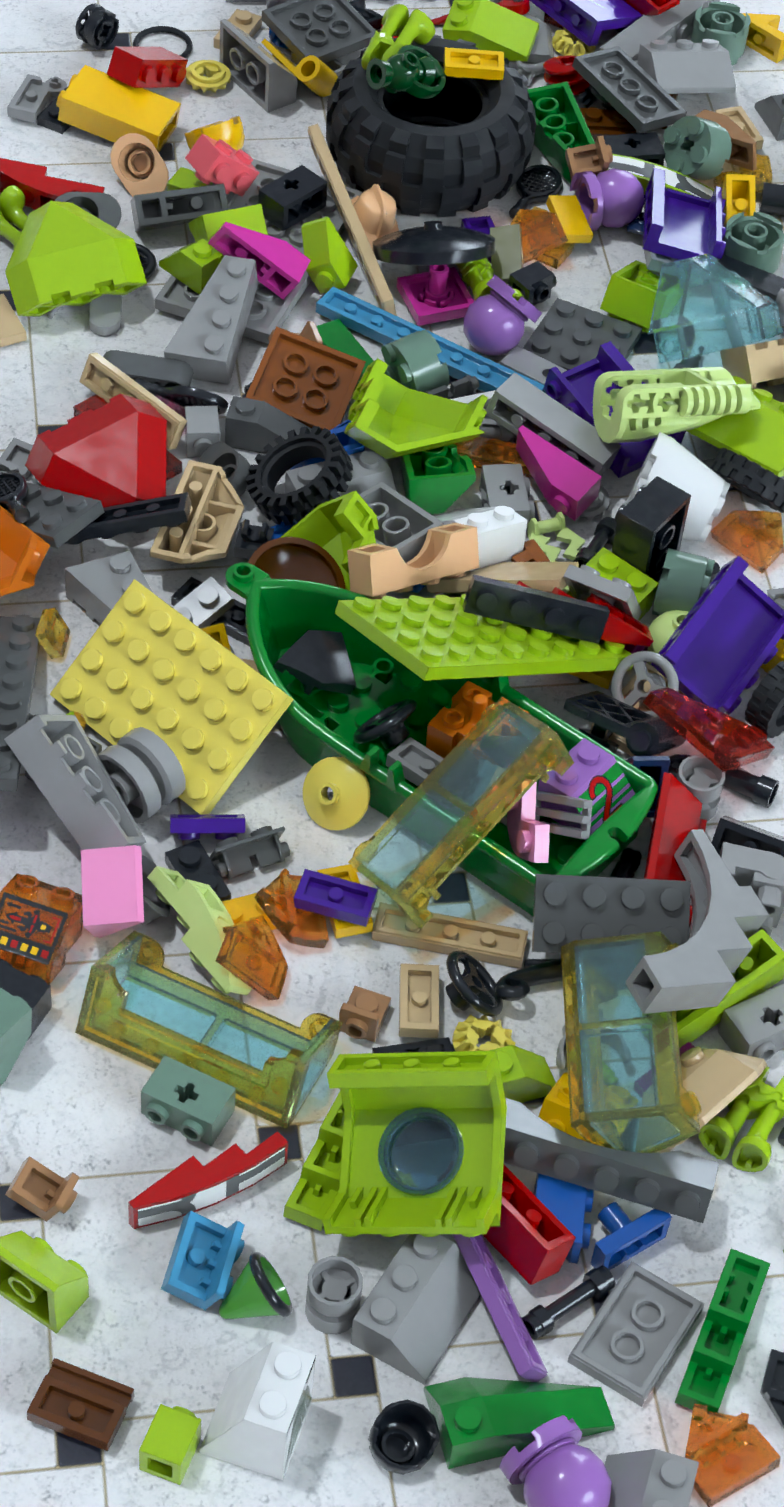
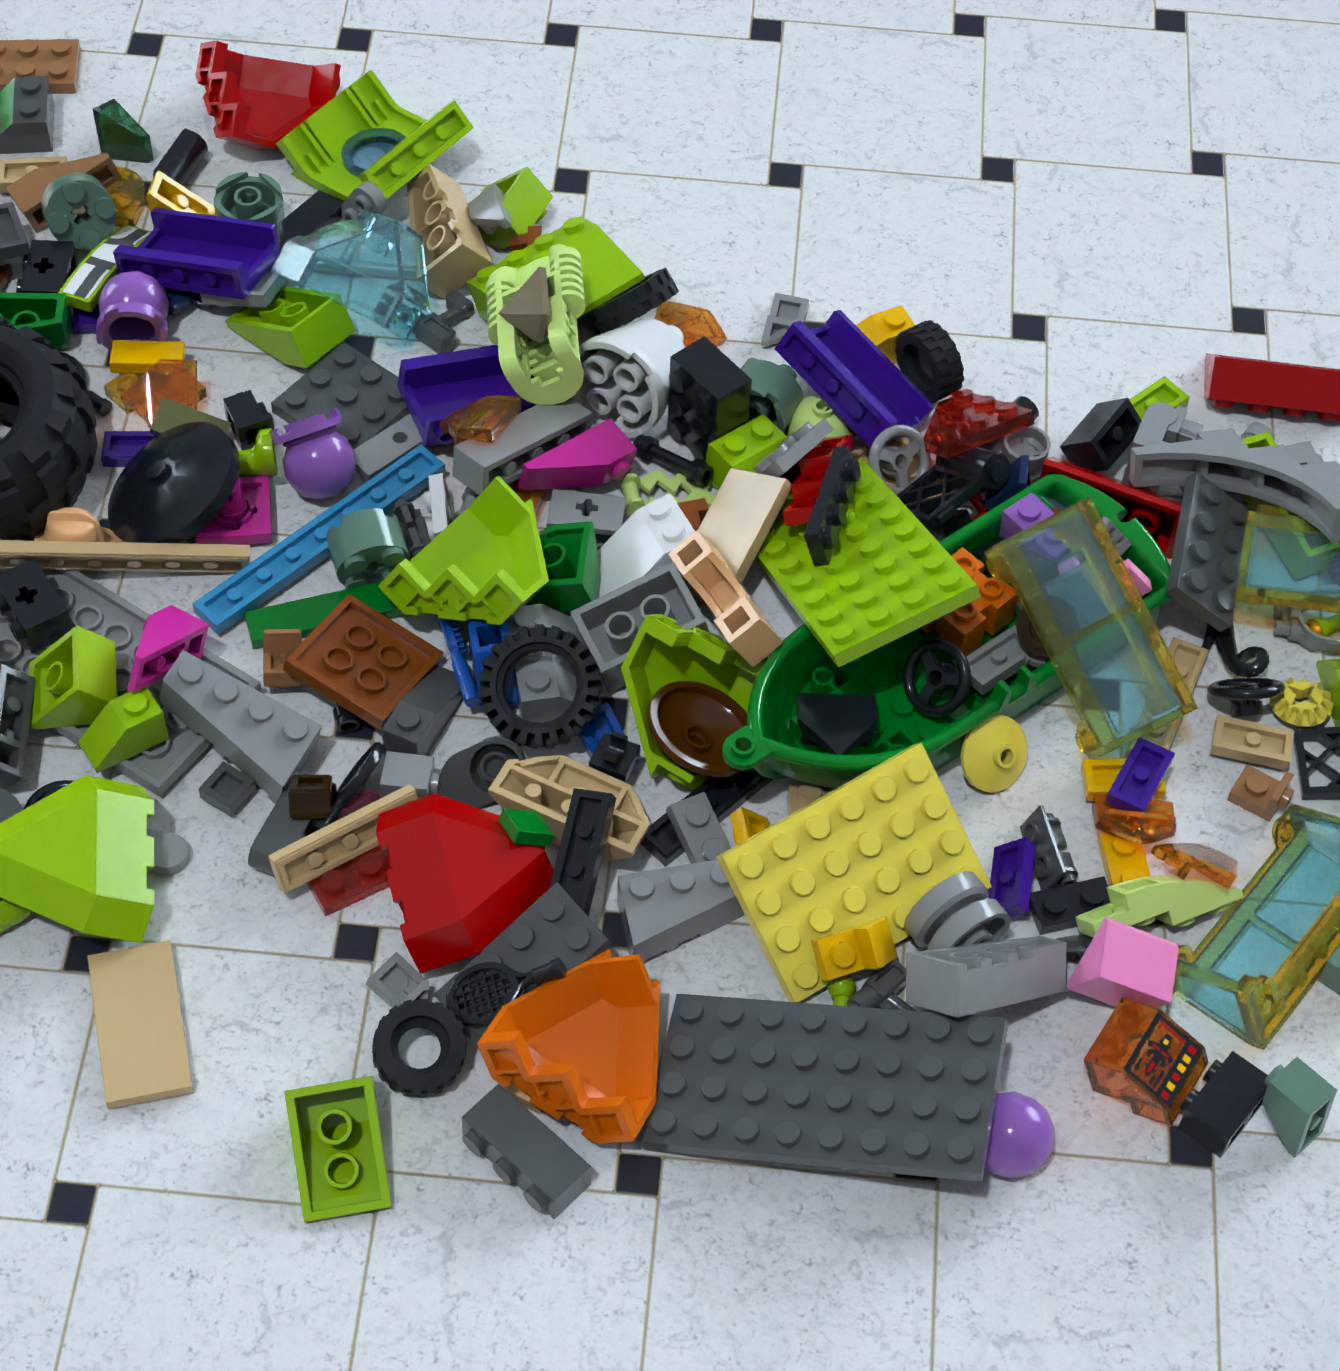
camera: 75 degrees left, 5 degrees up
(52, 633) = (707, 984): clear yellow plate -> none
(98, 712) = (854, 949): none -> yellow slope
(152, 480) = (526, 827): none -> green tile
(160, 368) = (310, 796): none -> dark brown slope
(162, 335) = (227, 788): none -> dark grey plate
(330, 259) = (150, 590): lime slope -> none
(557, 391) = (482, 419): none -> clear orange slope
(589, 157) = (82, 302): medium nougat bracket -> none
(675, 373) = (530, 307): none -> dark tan slope

